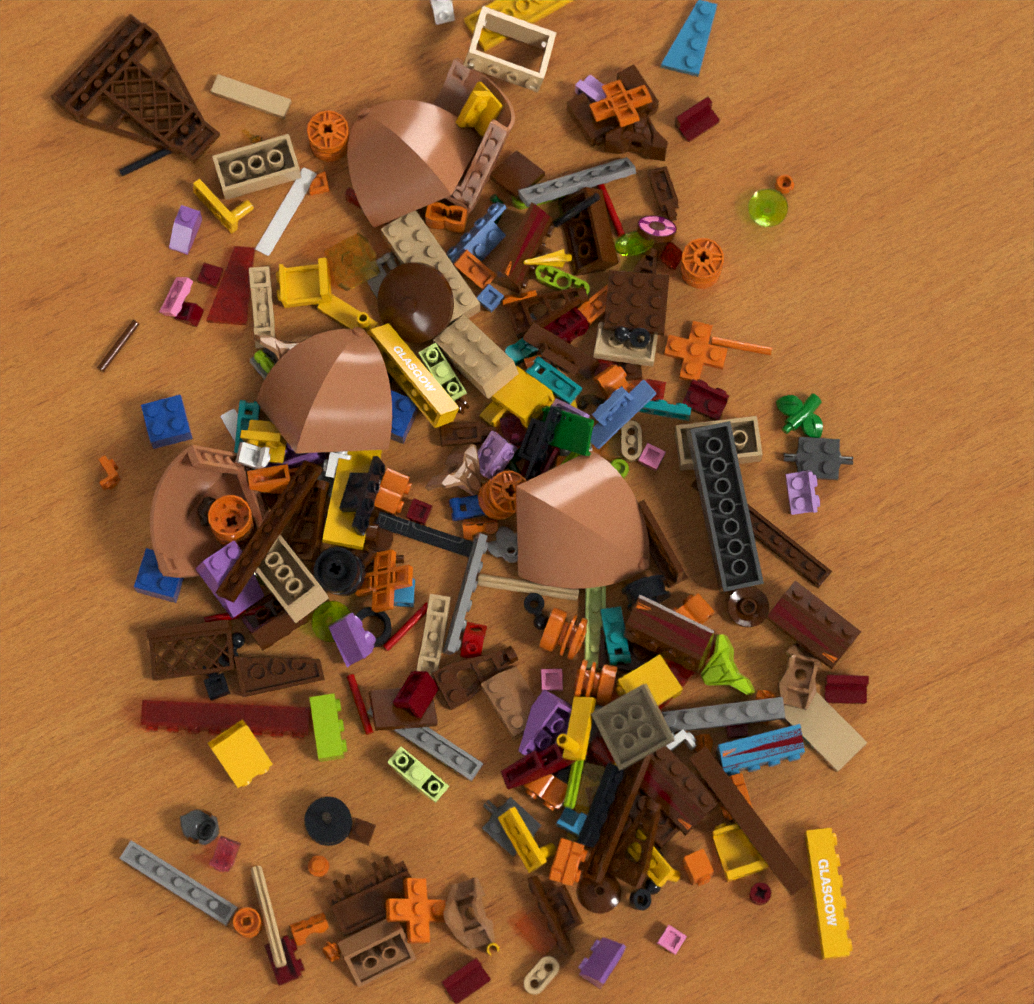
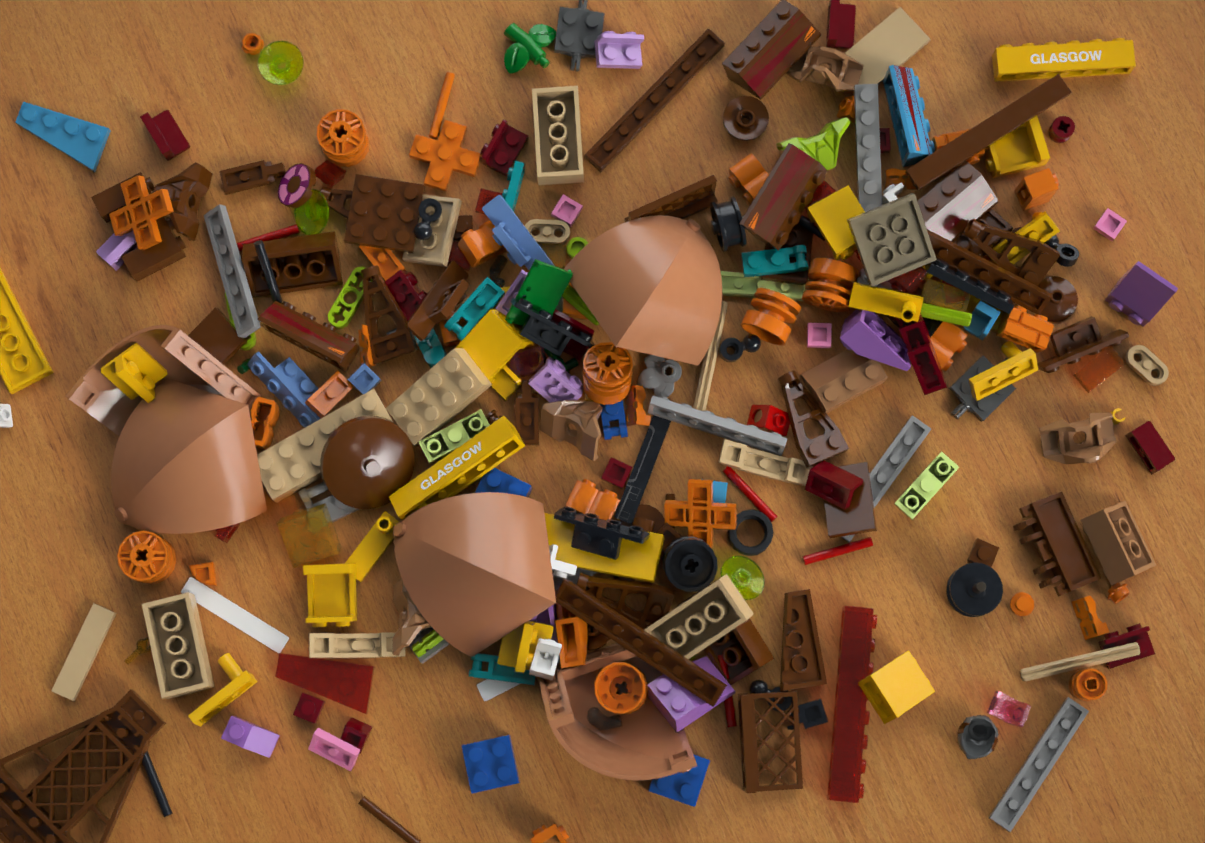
camera: 85 degrees left, 5 degrees up
(328, 727) = (865, 586): lime brick -> none
(352, 639) = (769, 553): medium lavender slope -> none
(415, 910) = (1078, 495): orange plate -> none
(517, 30) = (35, 323): tan window -> none
(553, 259) = (323, 303): yellow piece -> none
(724, 506) = (636, 129): dark grey brick -> none

